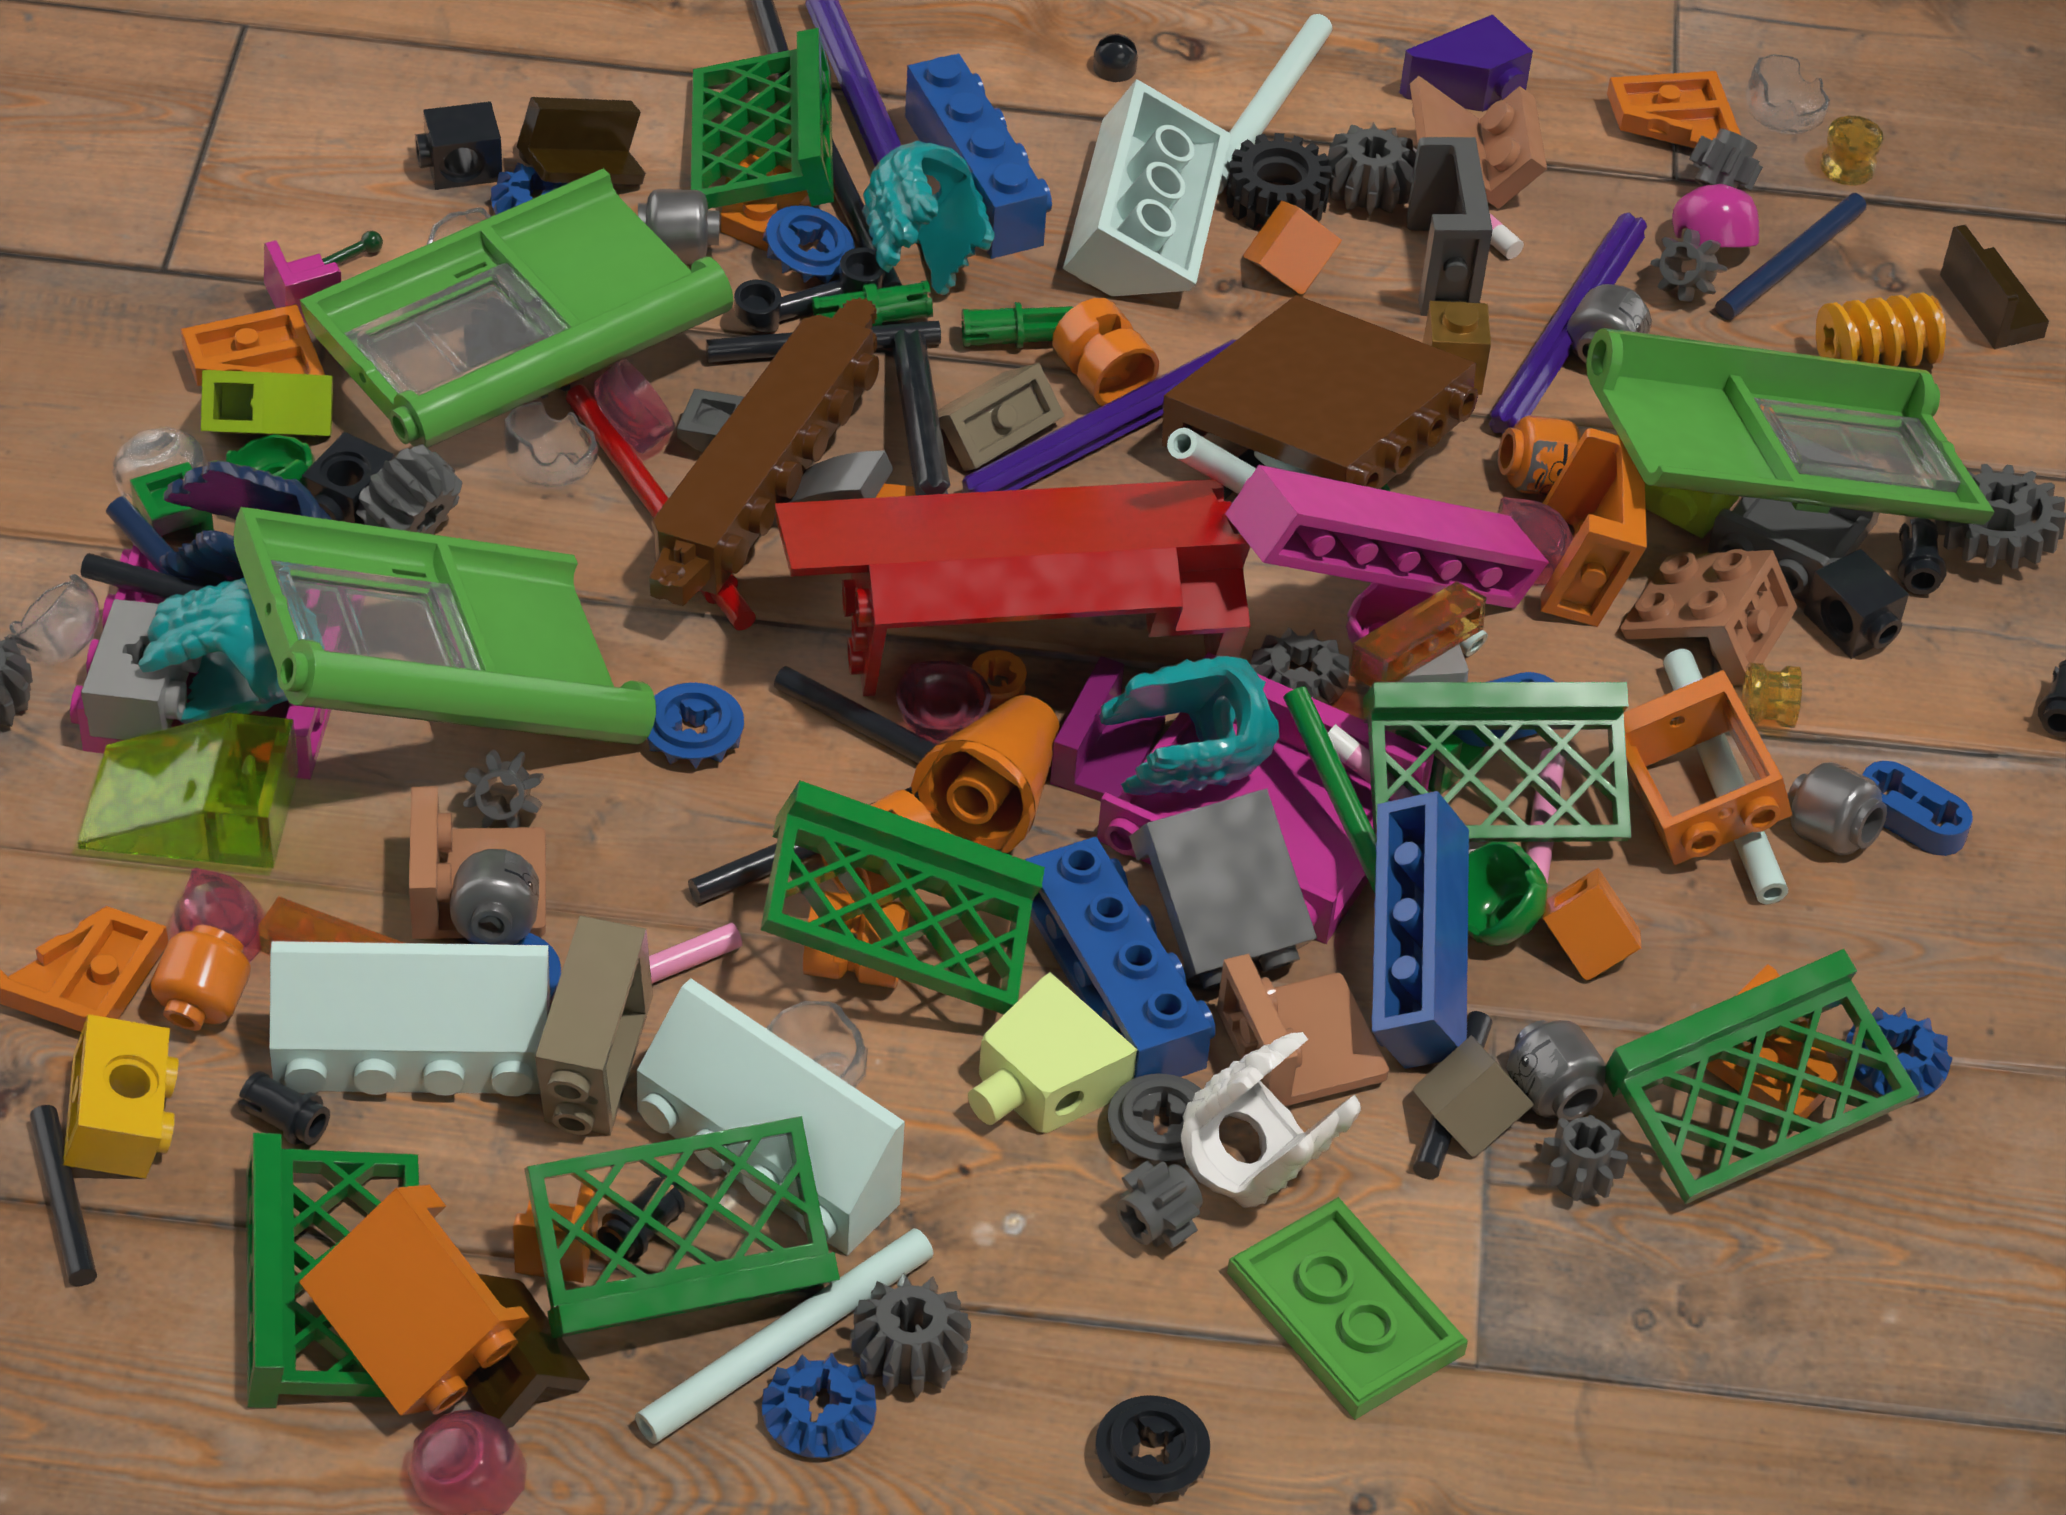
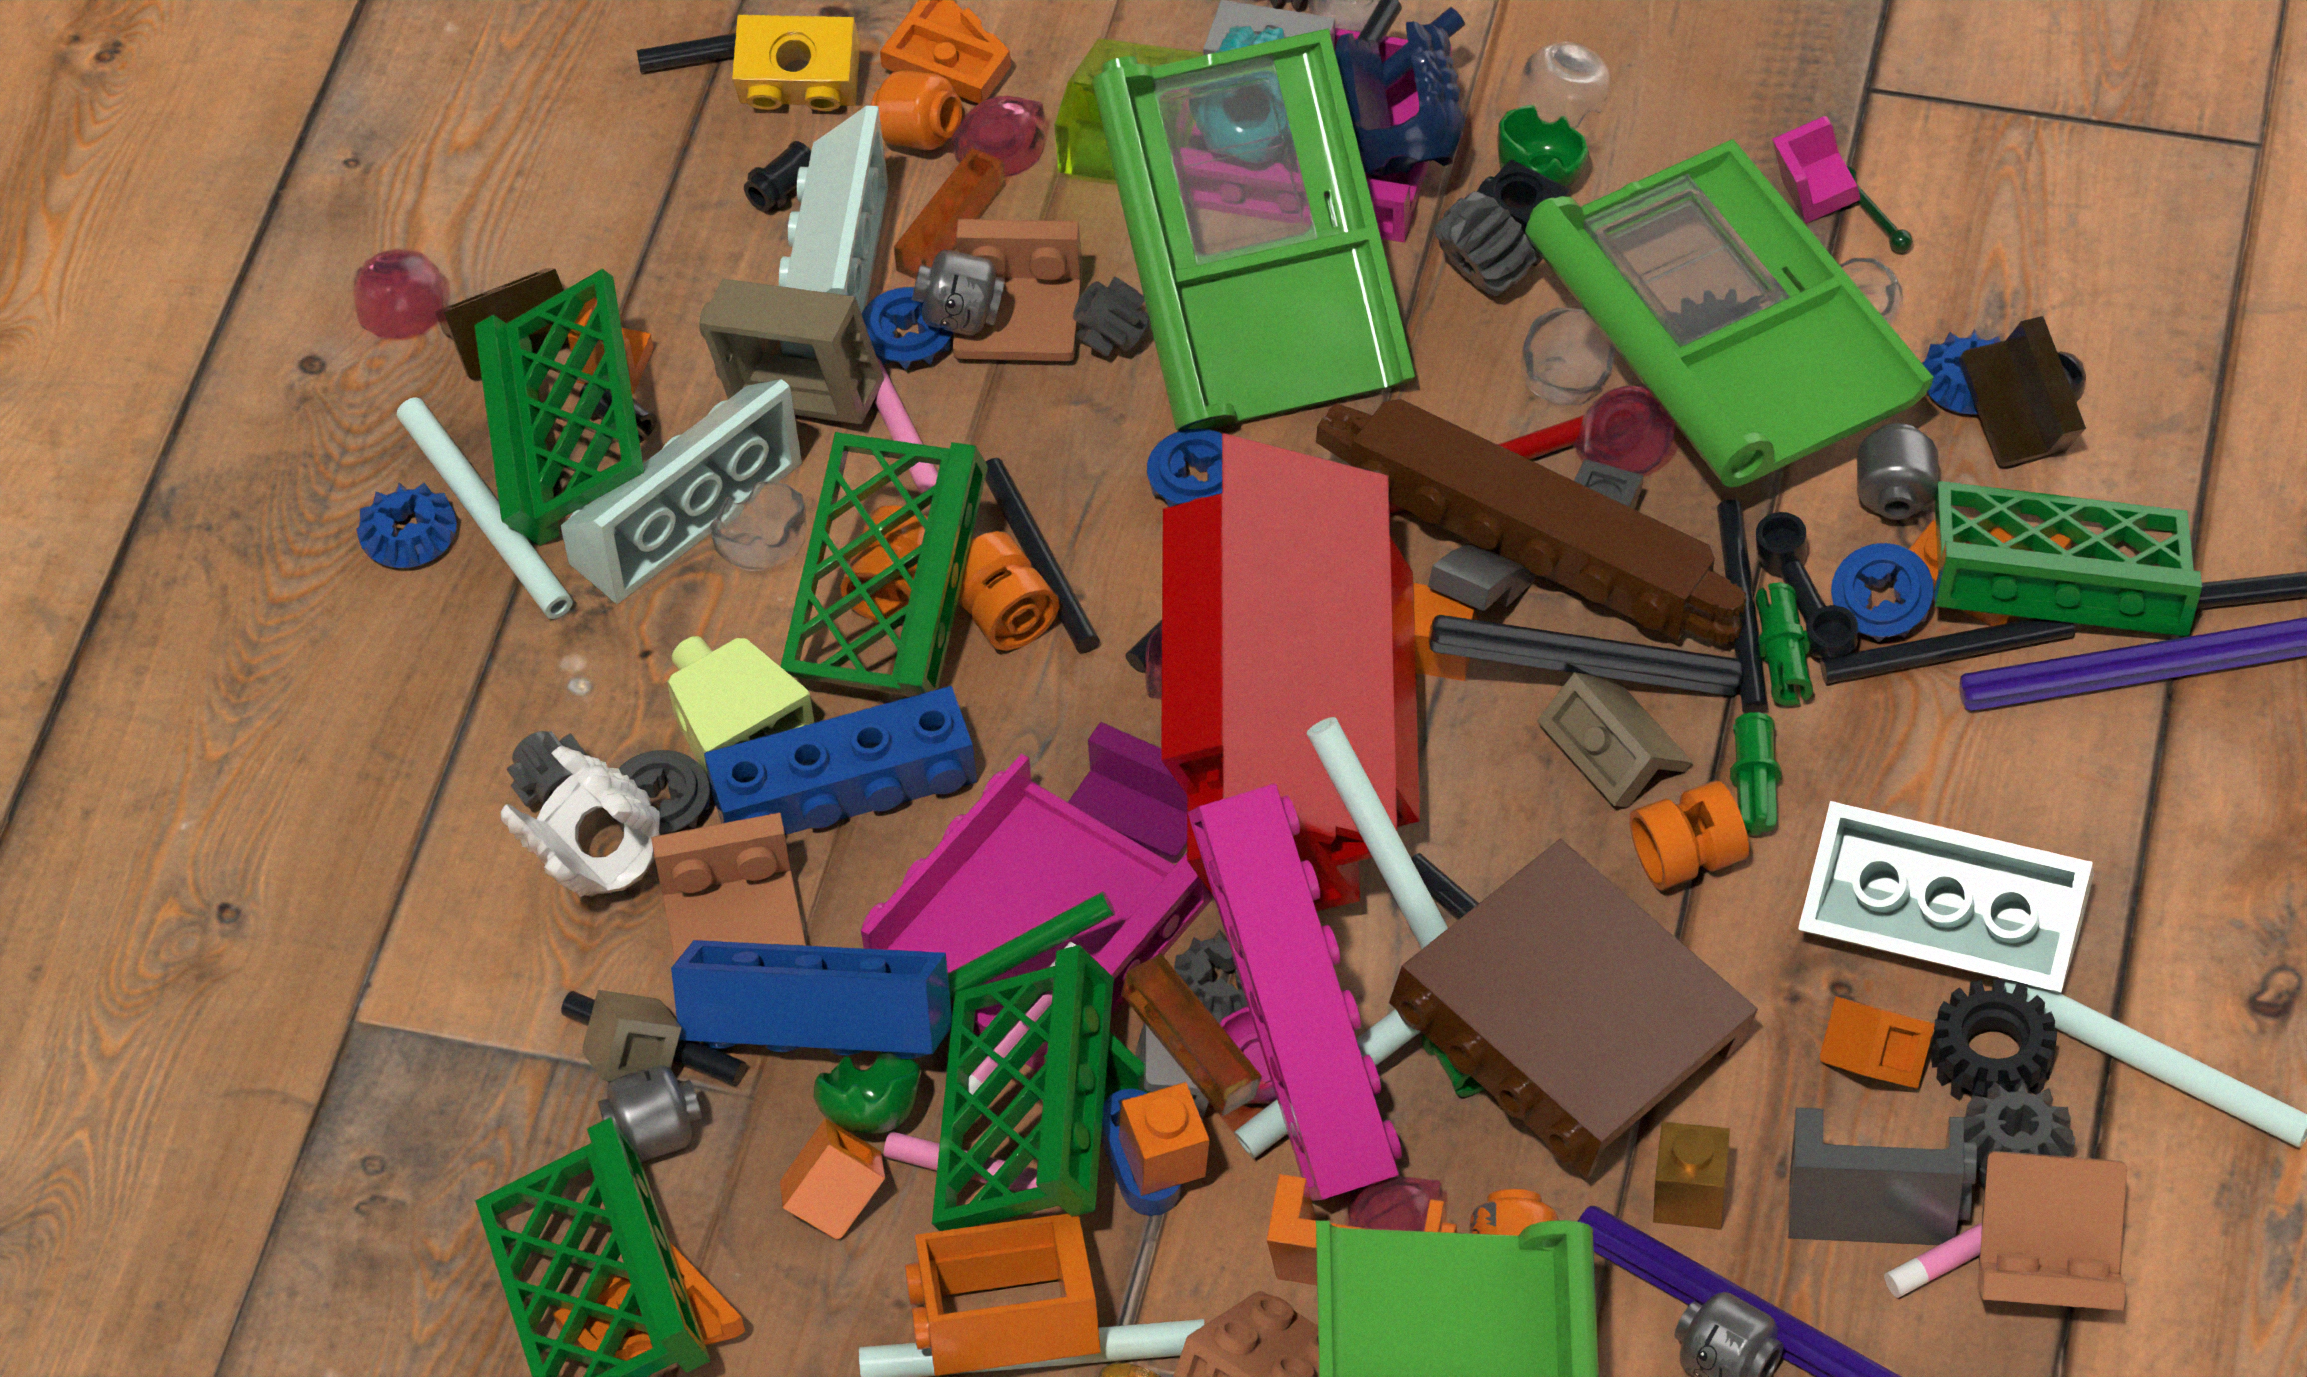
camera: 105 degrees right, 5 degrees up
(164, 516) = (1488, 80): green panel -> none
(252, 343) = (1727, 115): orange wing -> none
(266, 403) = (1628, 128): lime slope -> none
(274, 1253) = (617, 163): green fence -> none
(412, 1304) = (508, 213): orange panel -> none
(460, 145) = (2035, 288): black brick -> none
(905, 212) = (1942, 659): teal piece -> none
(910, 1335) = (451, 581): dark grey gear -> none
(951, 110) = (2024, 744): blue brick -> none
(990, 774) = (1080, 677): orange cone -> none
(1083, 434) = (1588, 824): dark purple axle -> none
(1115, 58) = (2216, 911): black hinge -> none
(1160, 1423) = (325, 732): black gear -> none
(1212, 696) = (1125, 845): teal piece -> none
(1227, 885) = (888, 832): dark grey panel -> none
(1347, 1307) = (428, 920): bright green tile -> none
(1470, 64) = (2217, 1276): dark purple slope -> none
(1525, 647) = (1163, 1138): none -> orange brick
(1583, 1158) = (540, 1120): dark grey gear -> none

